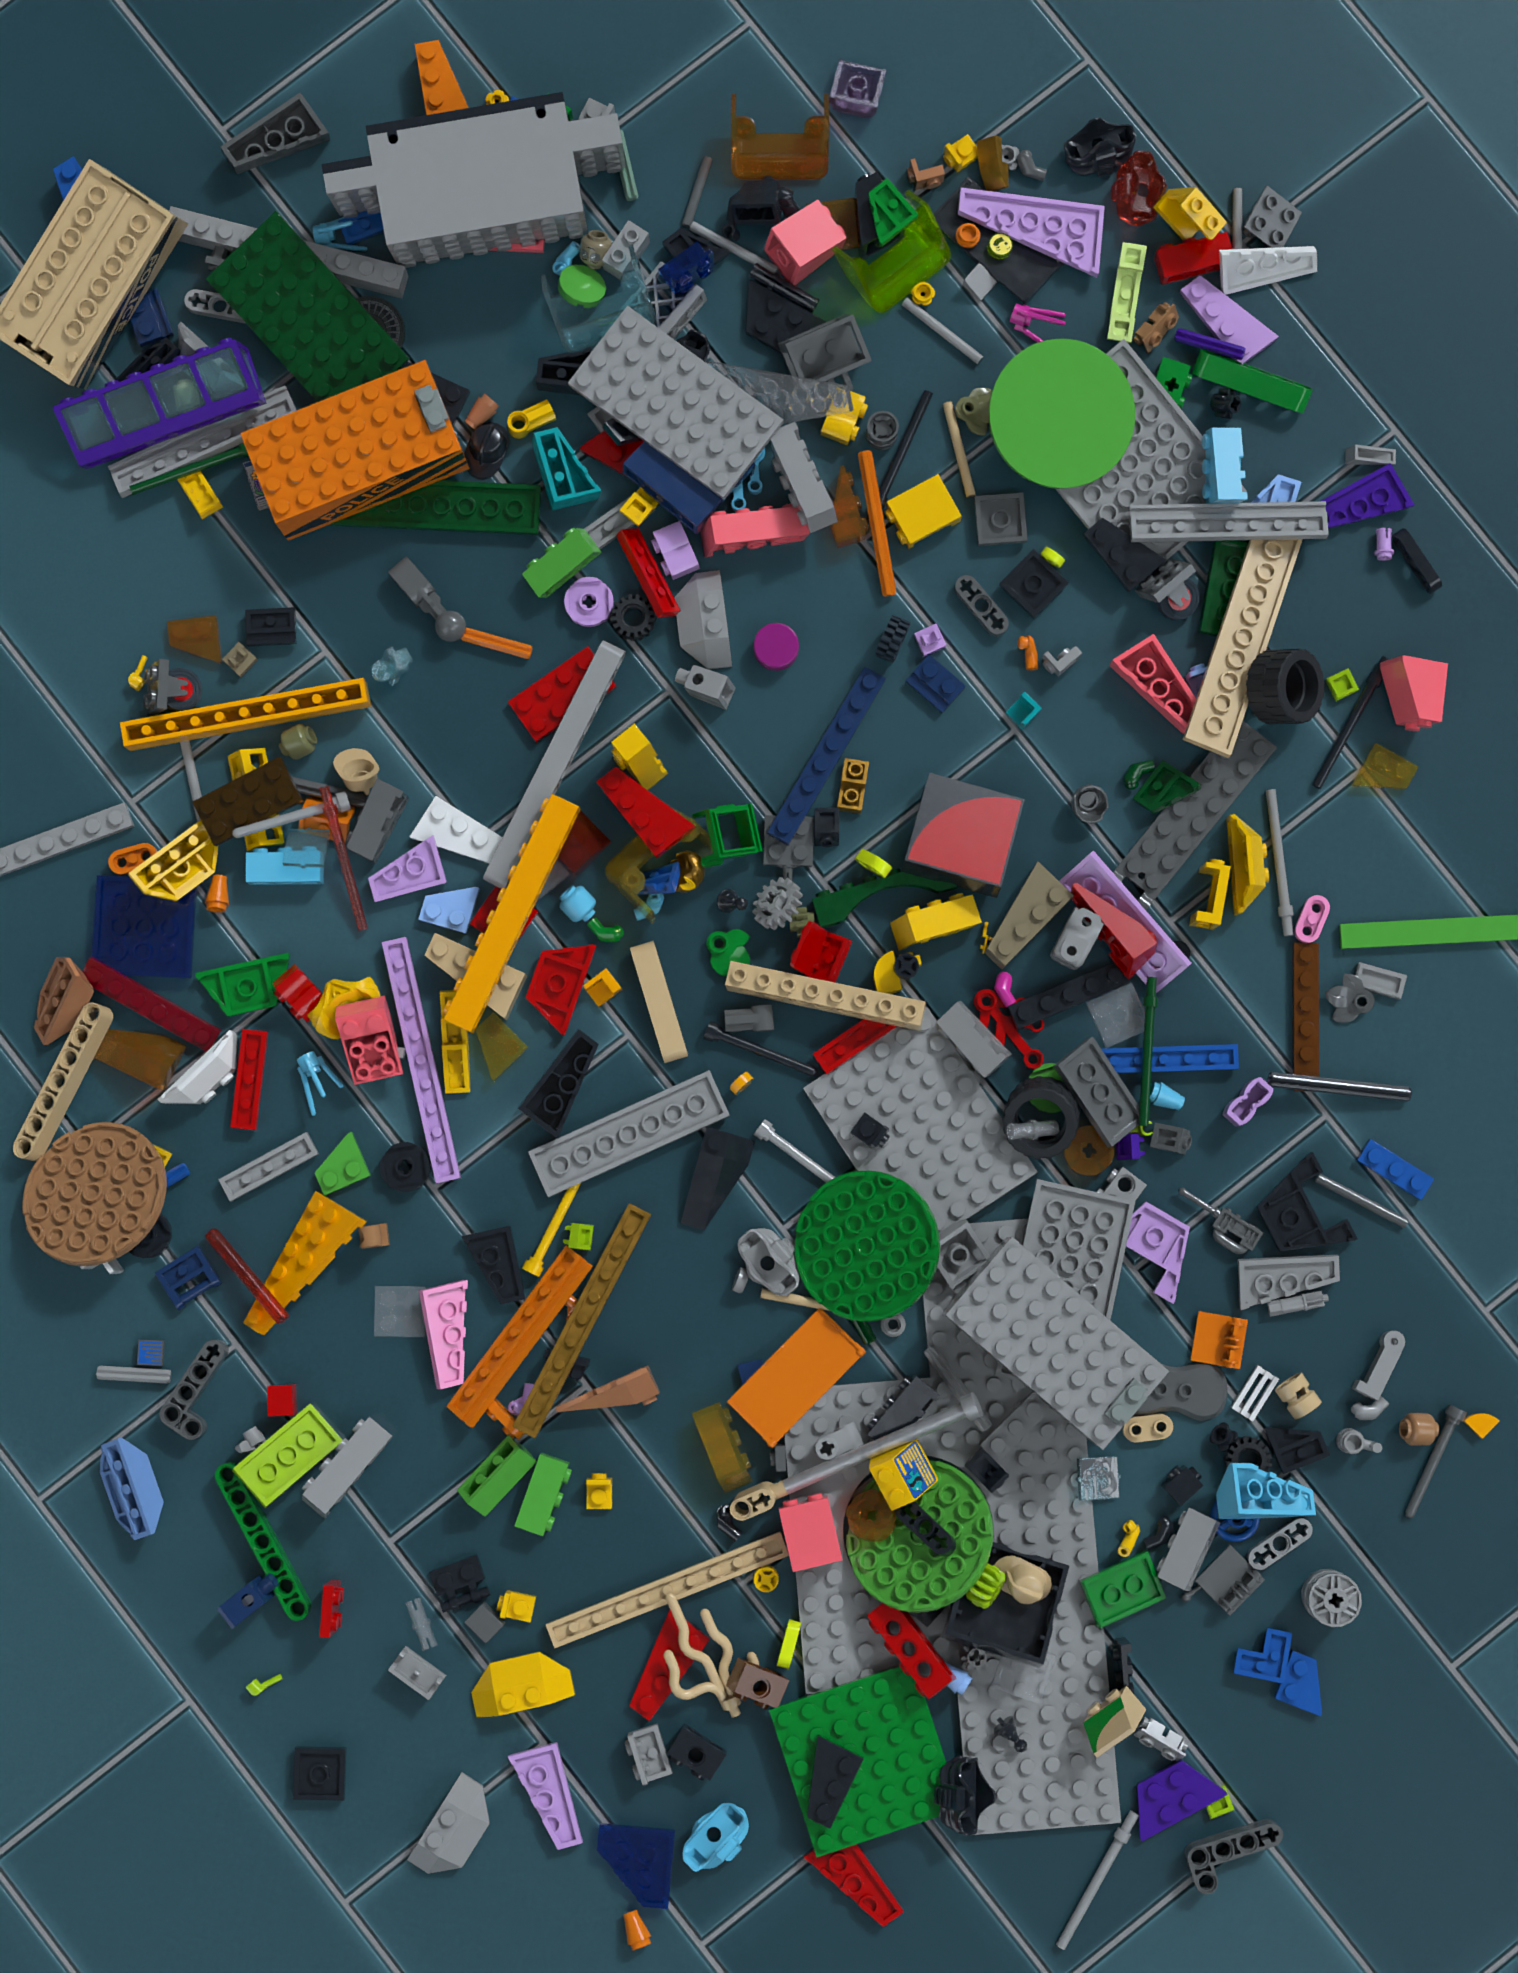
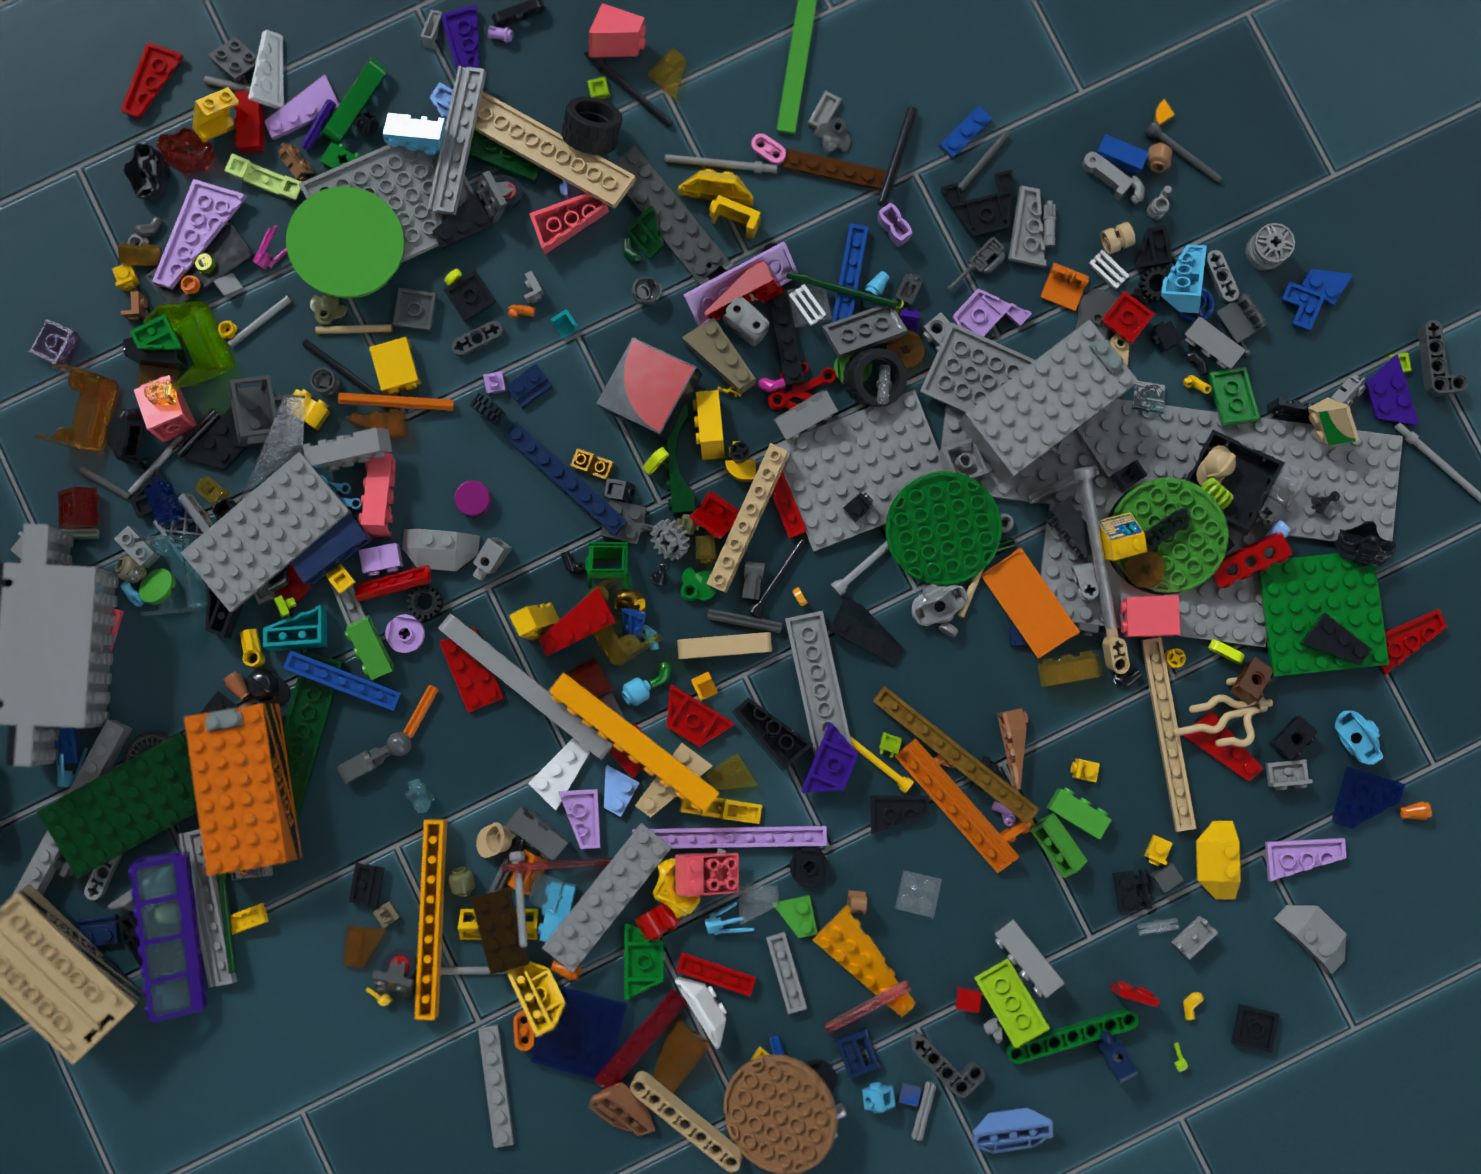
camera: 80 degrees left, 0 degrees up
(138, 1312) = (874, 1098): none -> medium azure brick
(315, 923) = (606, 897): none -> light grey plate
(334, 1685) = (1190, 1003): none -> yellow arm
(349, 1110) = (756, 900): none -> clear wing
(444, 1324) = (940, 862): bright pink wing -> none
(513, 538) = (341, 680): none -> blue plate
(538, 1166) = (831, 764): none -> dark purple wing
(590, 445) = (283, 606): none -> lime tile
(657, 166) = (78, 508): none -> clear red slope
(696, 1020) = (744, 620): none -> dark grey axle
(715, 313) = (204, 486): none -> clear yellow brick
(718, 788) = (570, 565): none -> black arm
(775, 951) = (705, 549): none -> clear yellow brick
(819, 240) = (161, 392): none -> clear yellow brick
(1131, 996) = (798, 292): none -> white tile
(1194, 1428) = (1127, 317): none -> red plate
(1224, 121) = (149, 78): none -> red wing
(1411, 1379) = (1122, 154): none -> blue piece

